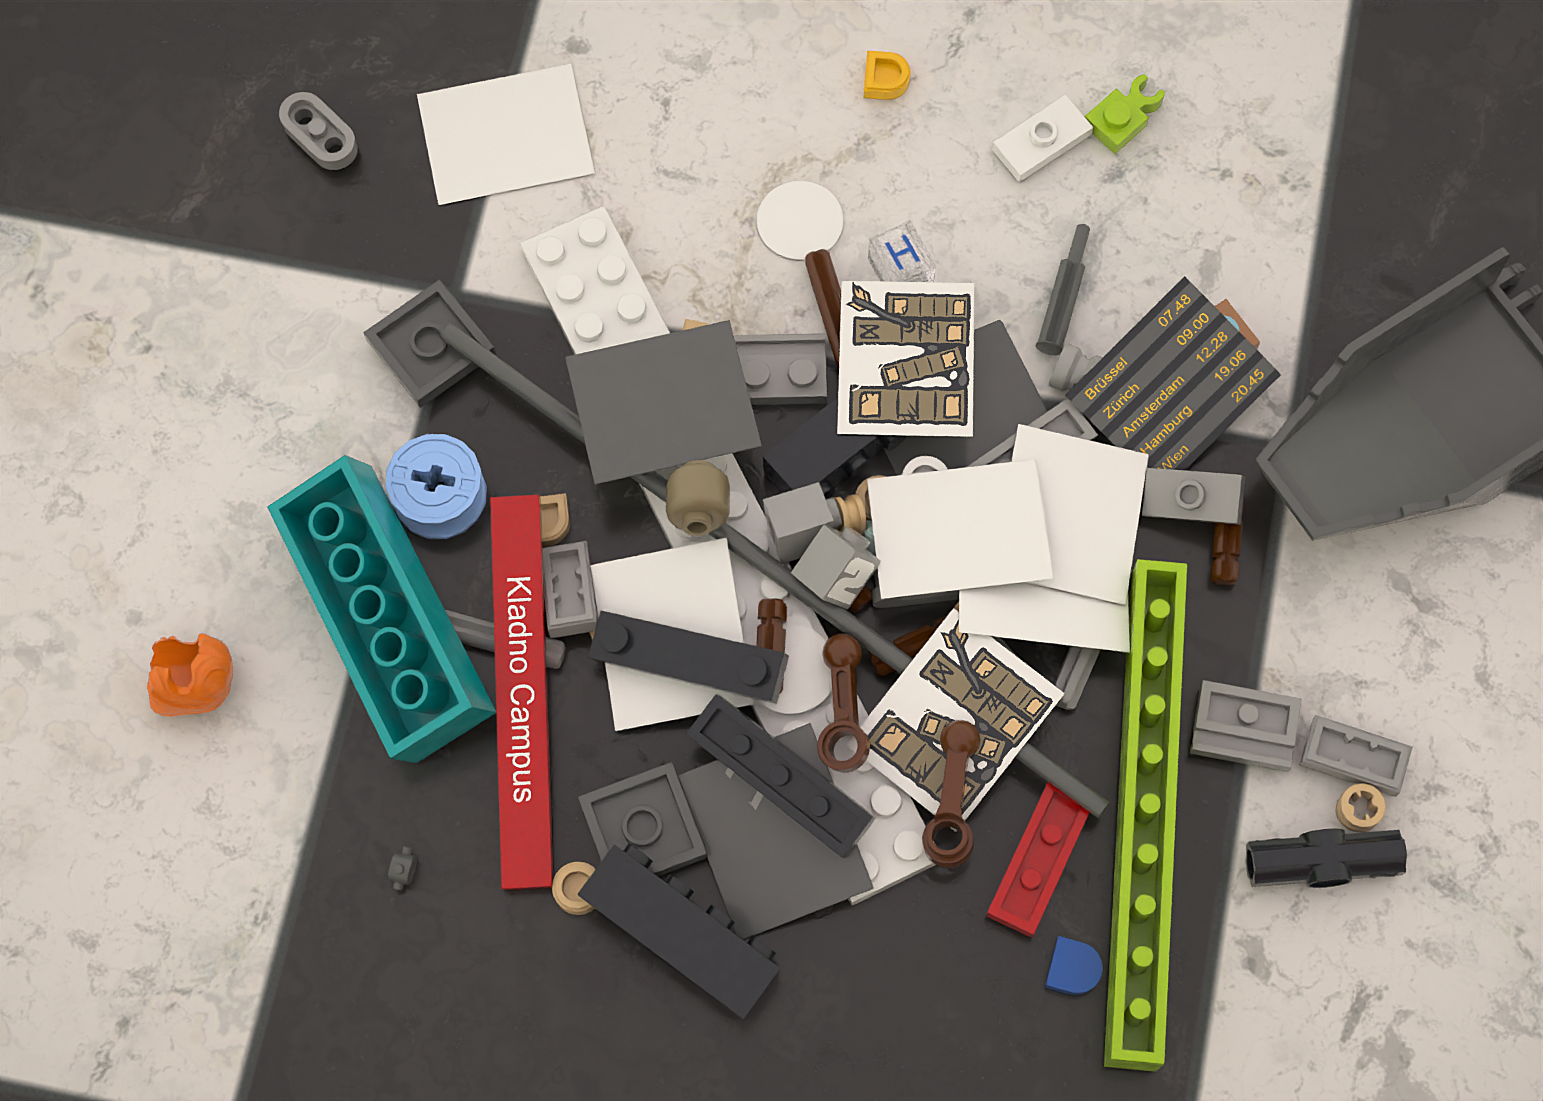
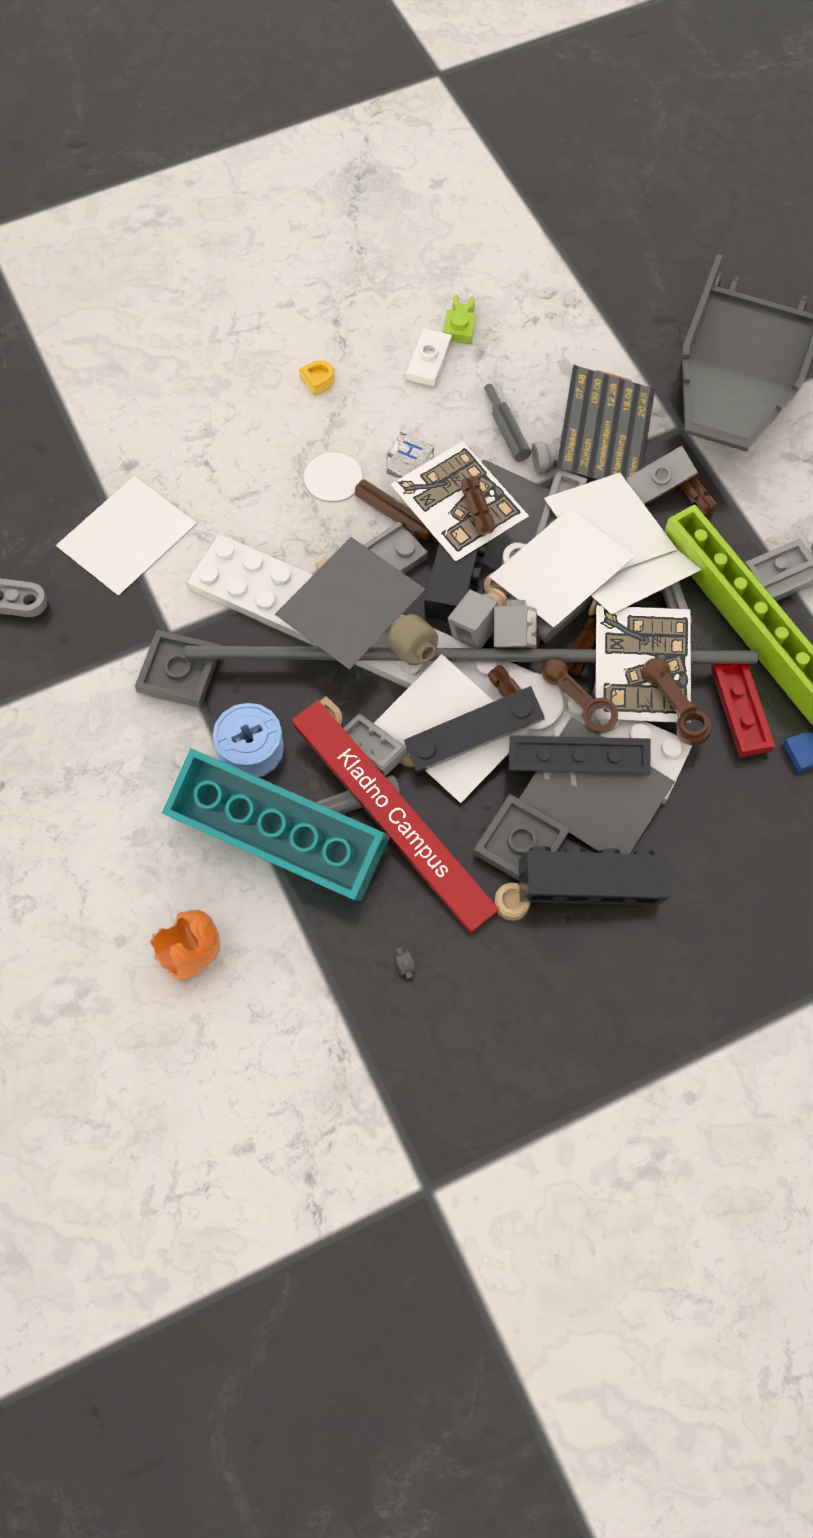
camera: 40 degrees left, 5 degrees down
(916, 381) = (477, 505): none -> reddish brown axle

